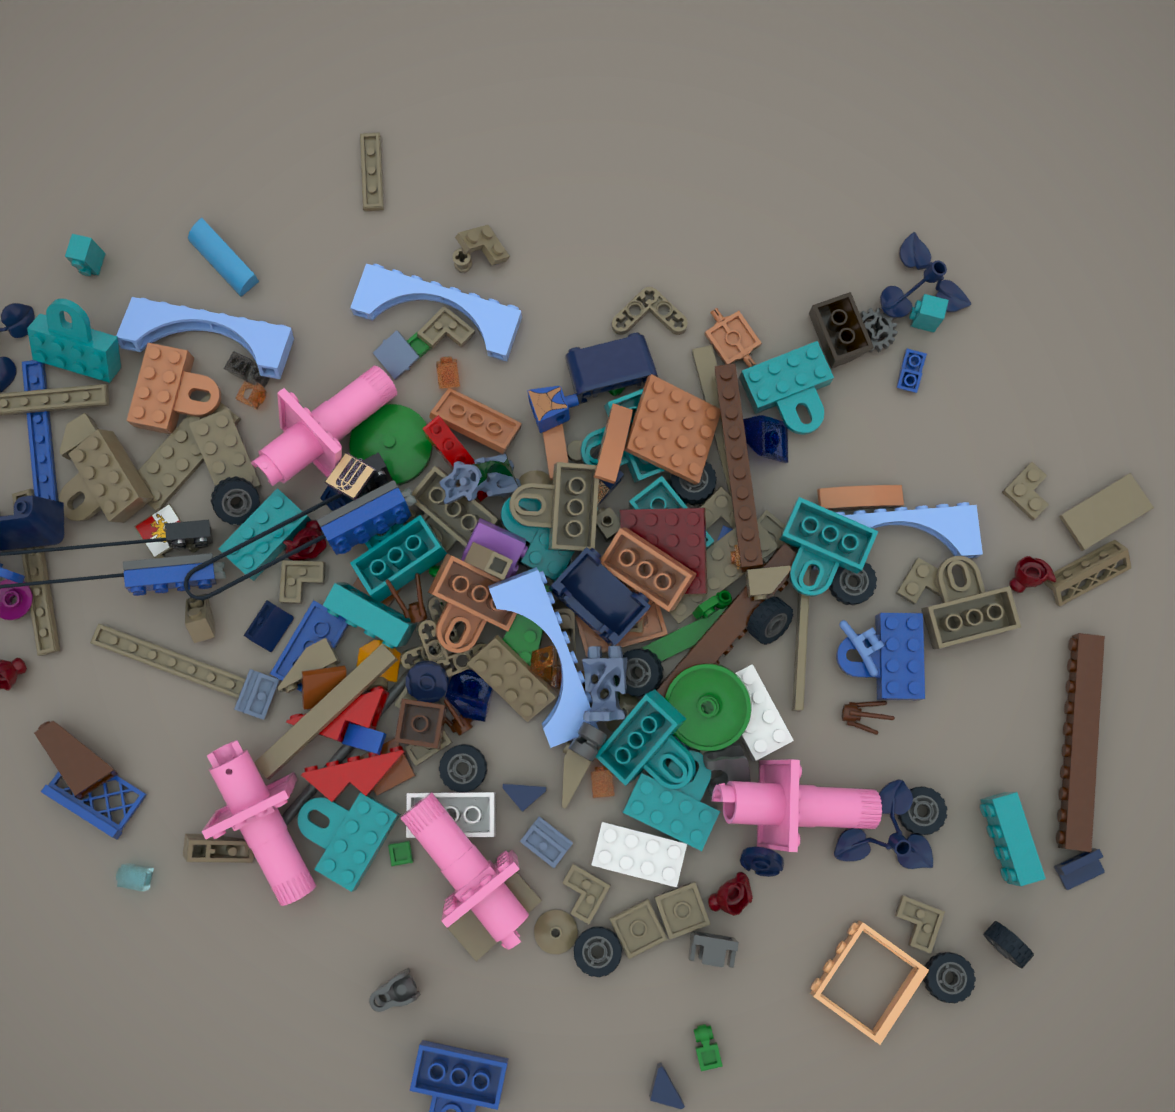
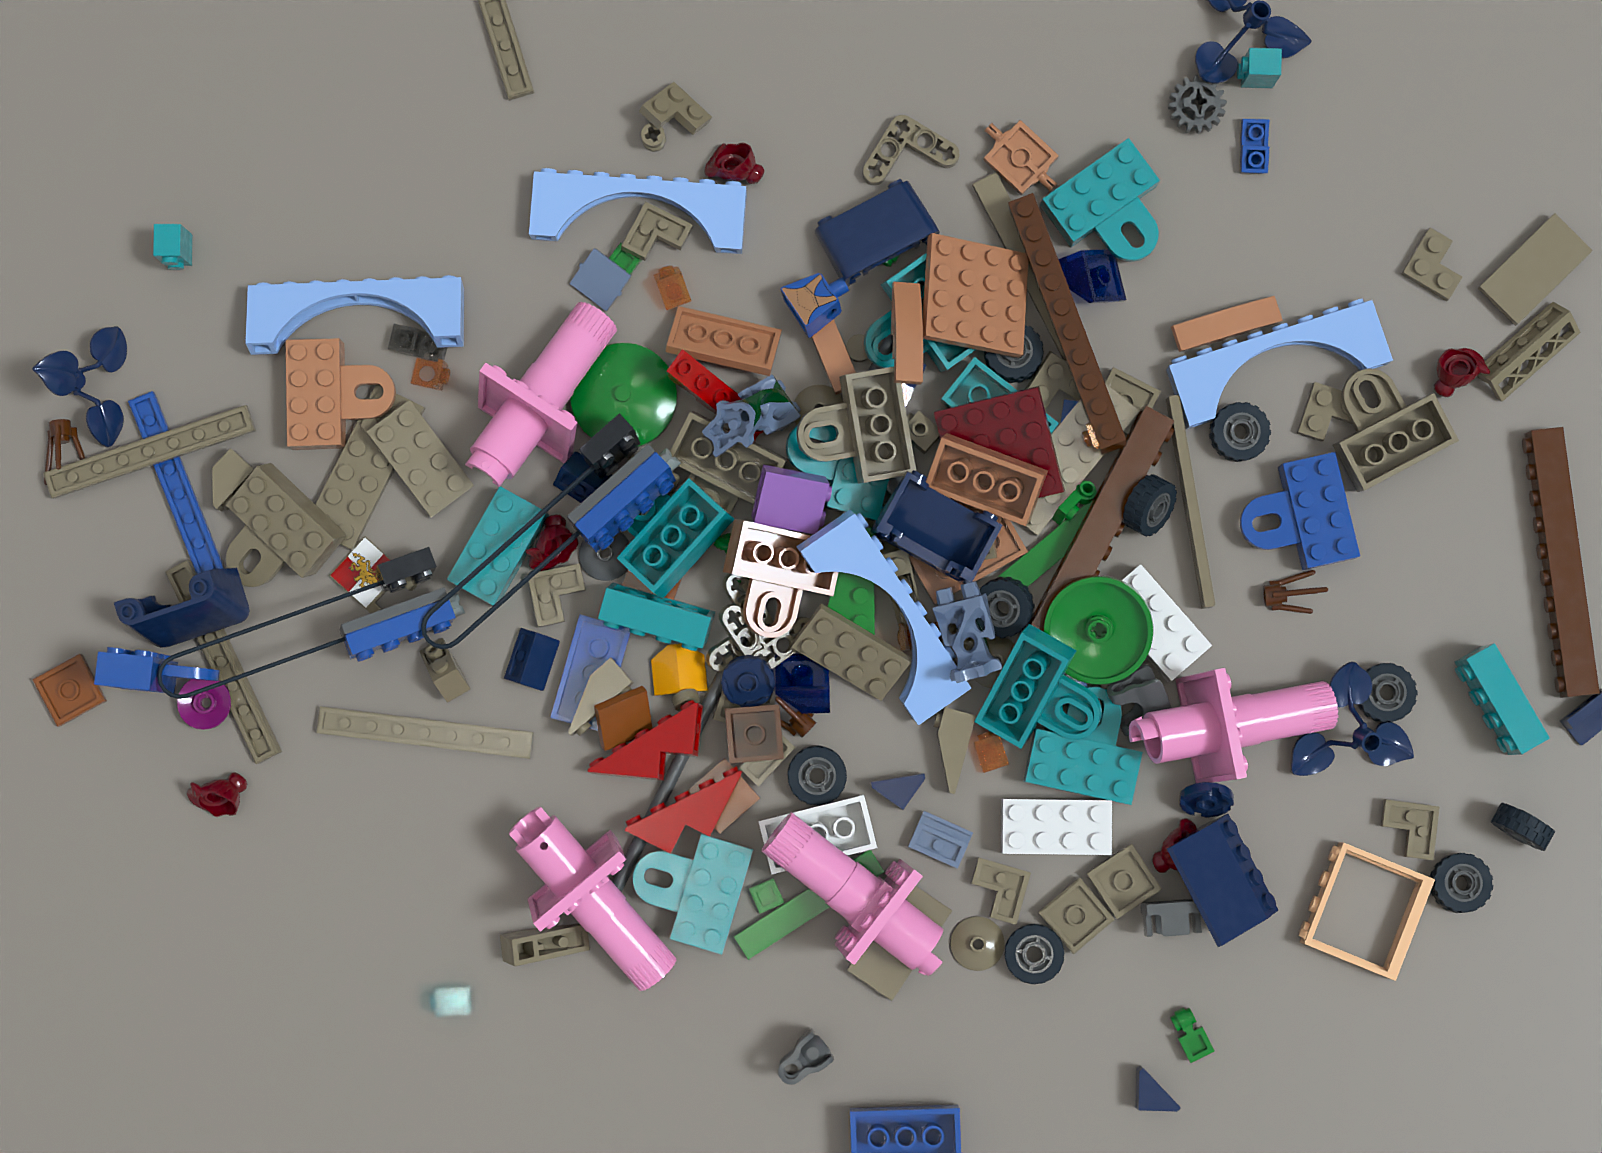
camera: 10 degrees left, 5 degrees up
(73, 344) = (194, 366): teal brick -> none
(75, 762) = (343, 880): reddish brown slope -> none
(88, 812) = (367, 937): blue fence -> none
(222, 257) = (345, 205): dark azure brick -> none
(233, 488) = (437, 506): black wheel -> none
(256, 694) = (540, 746): sand blue plate -> none
(325, 711) = (634, 746): dark tan tile -> none
(343, 570) = (604, 568): none -> dark grey dish
(350, 476) = (592, 452): piece -> none
(364, 738) = (688, 768): blue slope -> none
(416, 609) = (714, 597): reddish brown plant -> none
(417, 873) = (792, 914): none -> green tile
(488, 560) = (790, 516): dark tan slope -> none
(517, 293) = (734, 163): none -> dark red hair
(541, 665) = (883, 627): clear orange bracket -> none
(588, 741) = (963, 706): dark grey wheel -> none
(760, 929) = (1223, 879): none -> dark blue slope
(764, 581) = (1132, 459): dark tan slope -> none
(825, 542) = (1195, 393): teal brick -> none
(840, 329) = (1154, 115): dark brown slope -> none
(860, 647) = (1272, 516): medium blue piece -> none

